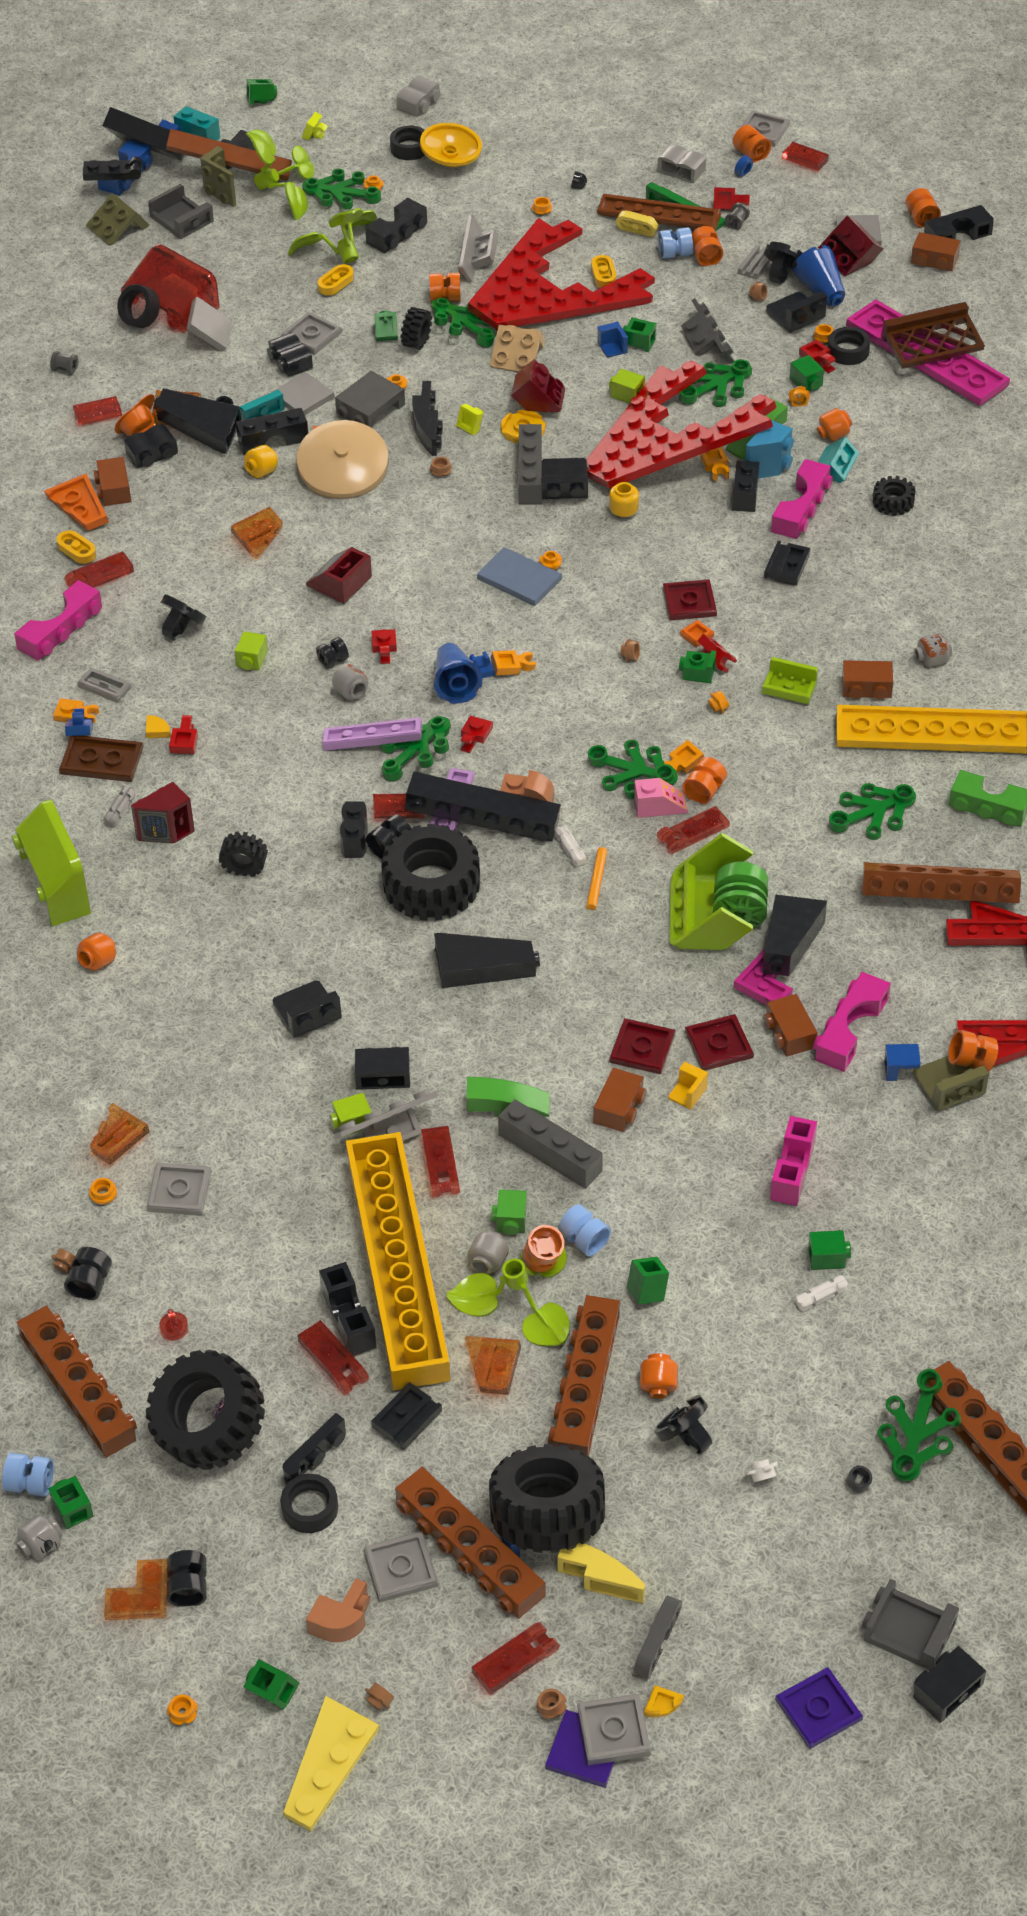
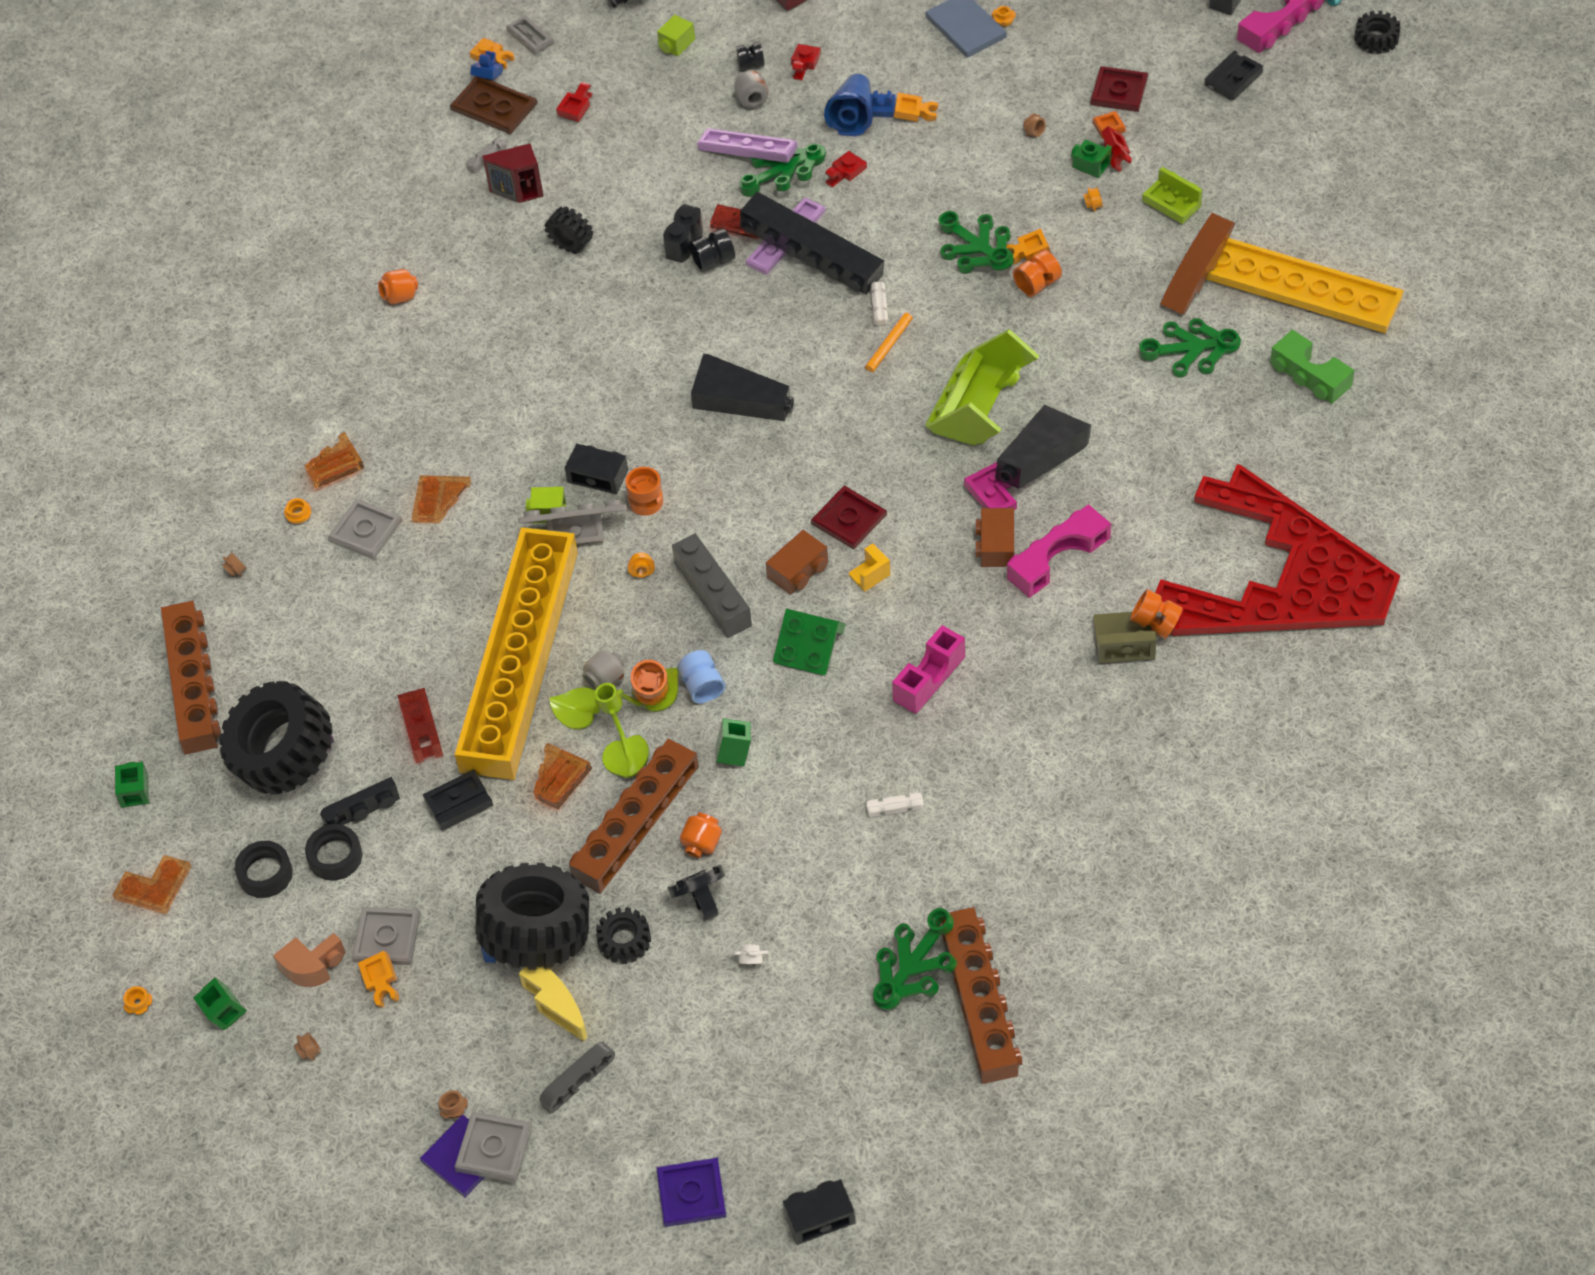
camera: 25 degrees right, 5 degrees up
(17, 1475) = (107, 747): light blue wheel -> none
(39, 1537) = (91, 807): light grey head -> none
(55, 862) = (390, 170): lime windscreen -> none
(87, 1273) = (247, 579): black wheel -> none
(157, 727) = (555, 87): yellow tile -> none
(173, 1325) = (298, 653): clear red tile -> none
(186, 1578) = (194, 884): black wheel -> none
(236, 1138) = (436, 496): none -> clear orange wing
(253, 1561) = (268, 887): none -> black tyre
(307, 1008) = (558, 392): black bracket -> none
(330, 1756) = (241, 1085): light yellow wing -> none
(350, 1318) = (453, 676): black arch -> none
(415, 1605) = (377, 975): none -> light orange plate
(424, 1489) = (432, 872): dark orange brick -> none
(430, 895) = (737, 316): black tyre -> none
(440, 1160) = (606, 571): clear red plate -> none
(441, 1074) = (644, 491): none -> orange wheel
(471, 1145) = (641, 565): none -> light orange plate
(497, 1094) = (681, 522): bright green slope -> none
(510, 1211) = (644, 638): bright green brick -> none
(514, 1658) = (442, 1052): clear red plate -> none
(533, 786) = (865, 235): nougat brick -> none
(633, 1507) = (620, 920): none -> black tyre
(658, 798) = (984, 279): bright pink slope -> none
(662, 1702) = (552, 1137): yellow tile -> none
(665, 1169) = (806, 641): none -> green bracket
(693, 829) = (1001, 319): clear red plate -> none
(719, 1042) = (922, 534): dark red tile -> none
(742, 891) = (1010, 395): bright green wheel -> none
(828, 1250) = (919, 765): green brick -> none
(847, 734) = (1197, 263): none -> dark orange slope
(864, 1483) = (832, 986): black hinge -> none
(867, 679) = (1252, 213): dark orange brick -> none
(900, 1057) = (1084, 599): blue panel -> none
(909, 1626) = (811, 1144): dark grey panel -> none
(933, 650) = (1334, 201): light grey head -> none
(941, 882) = (1216, 437): dark orange brick -> none

